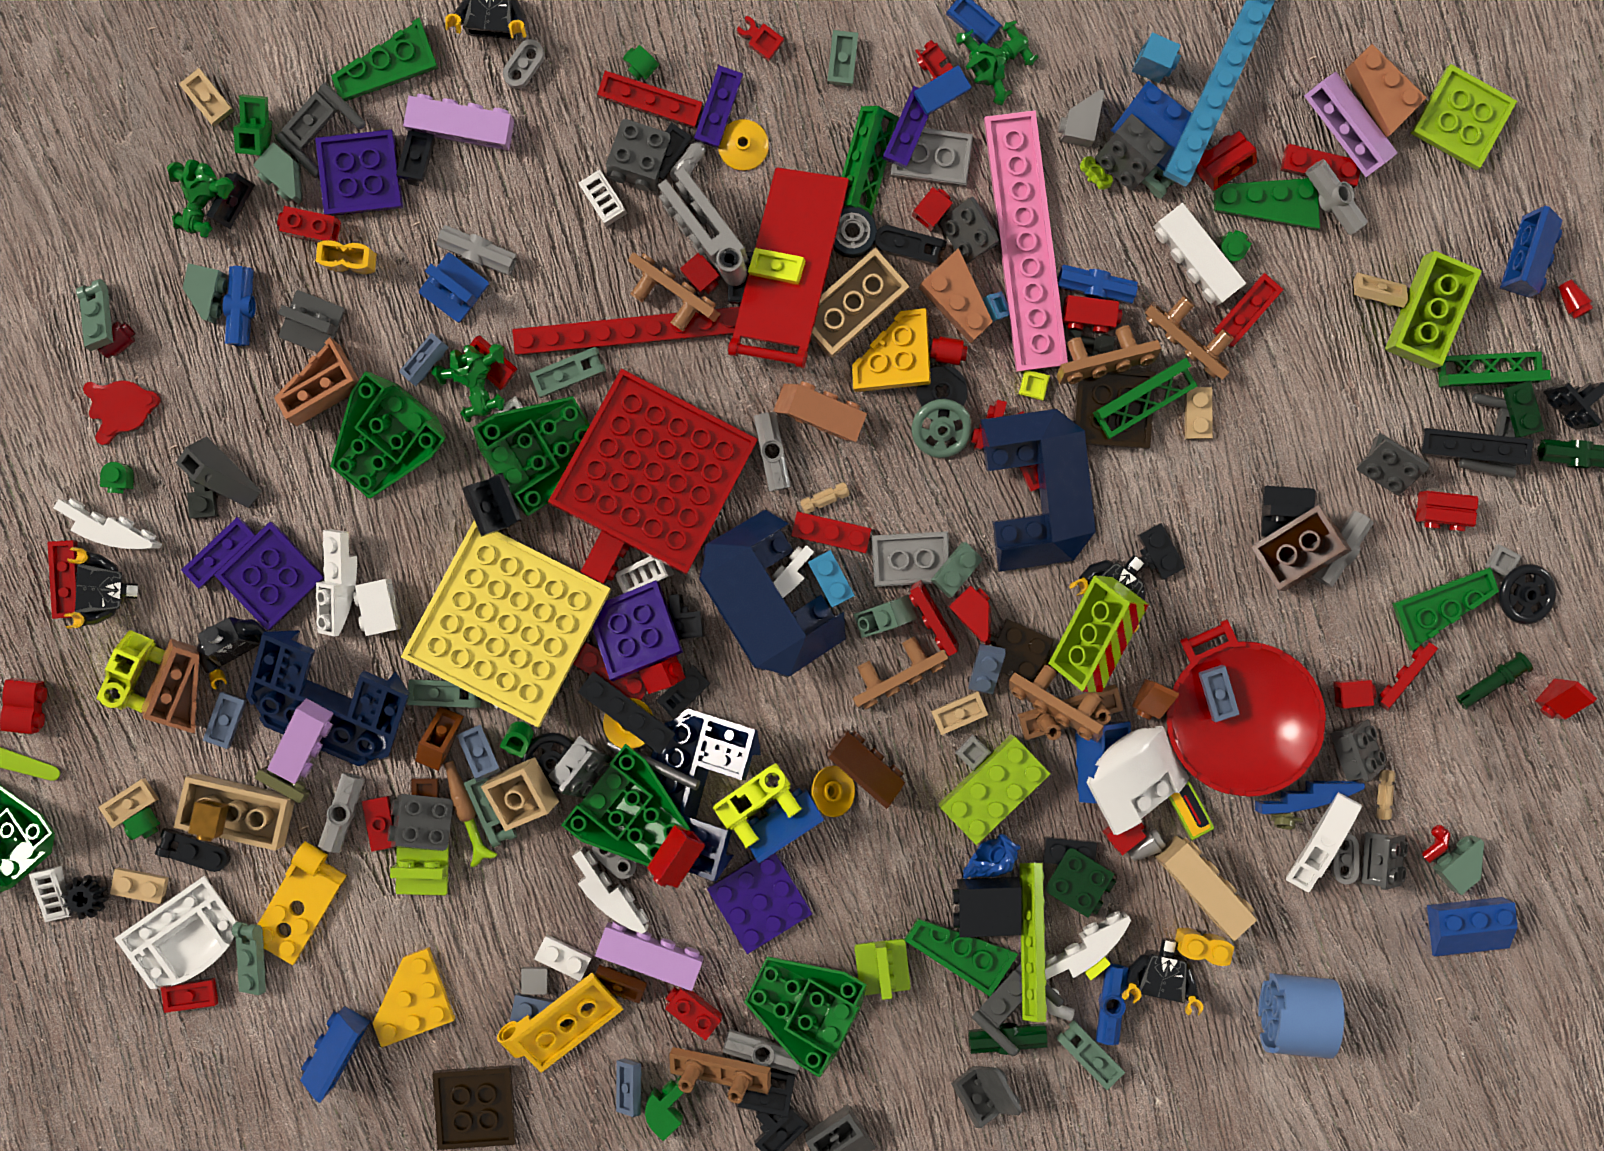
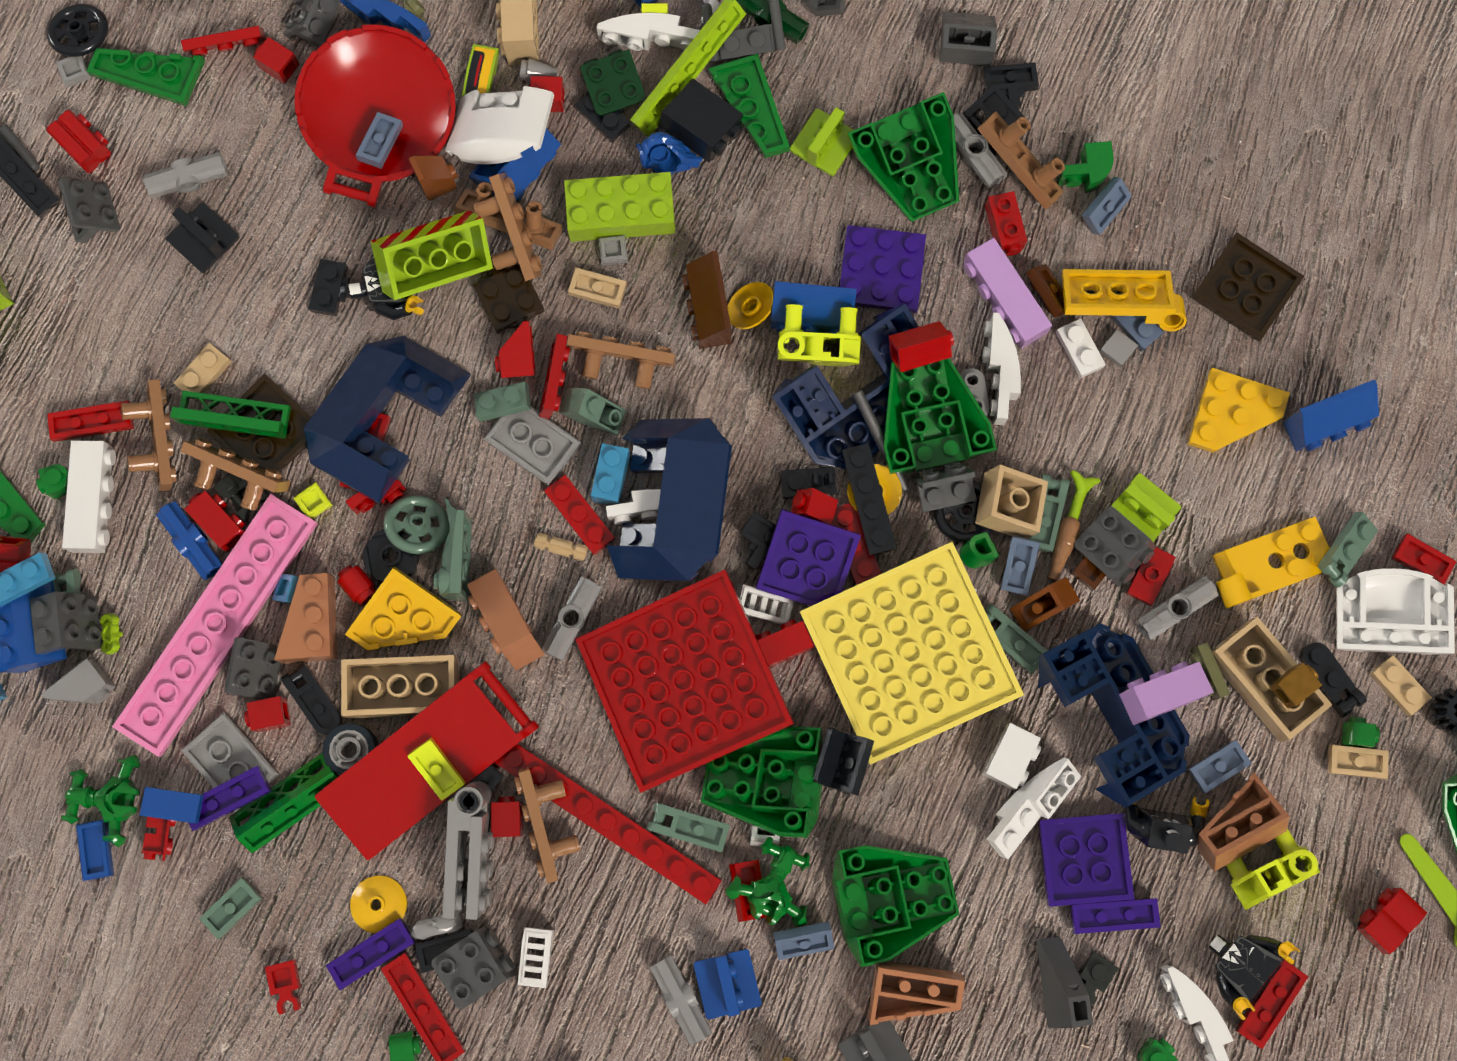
camera: 140 degrees left, 10 degrees down
(882, 414) = (456, 557): none -> sand green slope
(986, 668) = (545, 303): sand blue plate -> none
(1301, 548) = (216, 197): reddish brown slope -> none

